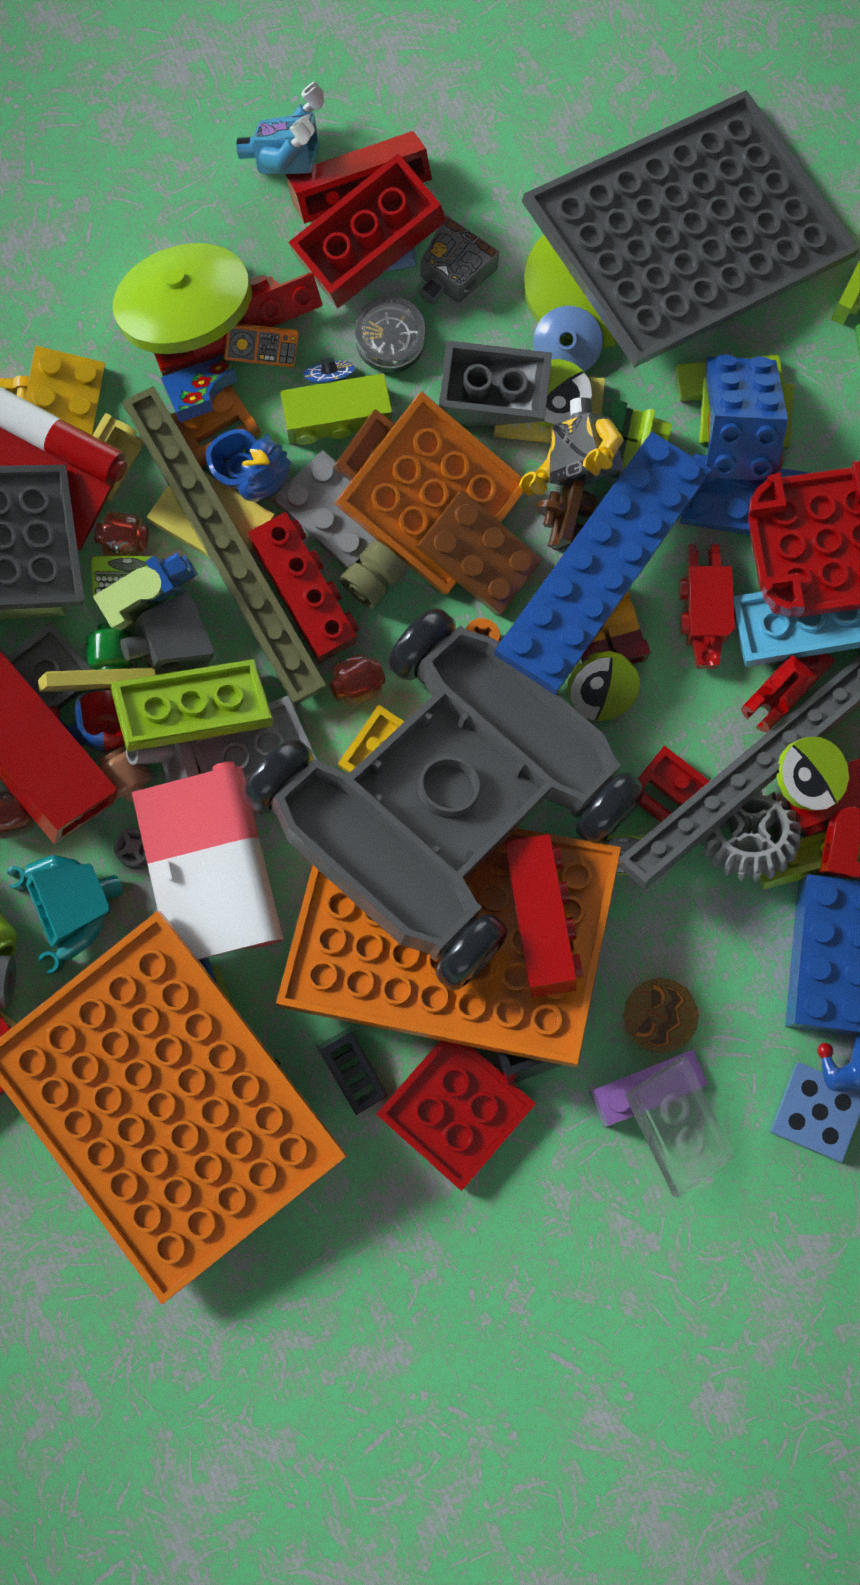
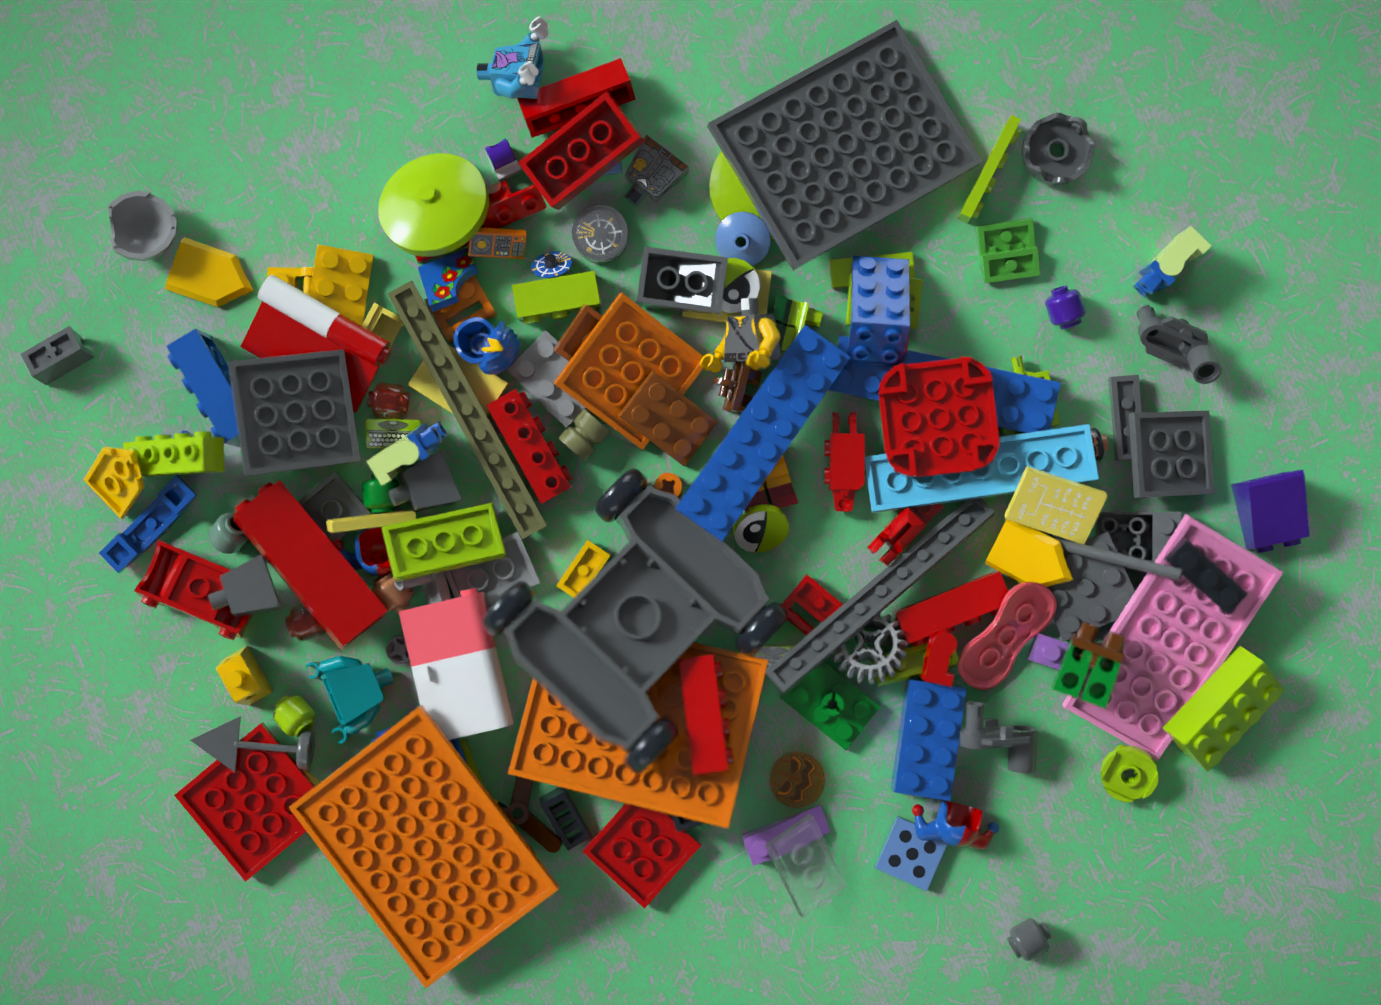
camera: 10 degrees right, 10 degrees up
(268, 247) = (503, 160): none -> dark purple leg
(302, 1076) = (528, 821): none -> reddish brown piece
(357, 680) = (571, 519): clear red head -> none
(701, 914) = (832, 704): none -> green plate
(812, 773) = (917, 604): tile -> none

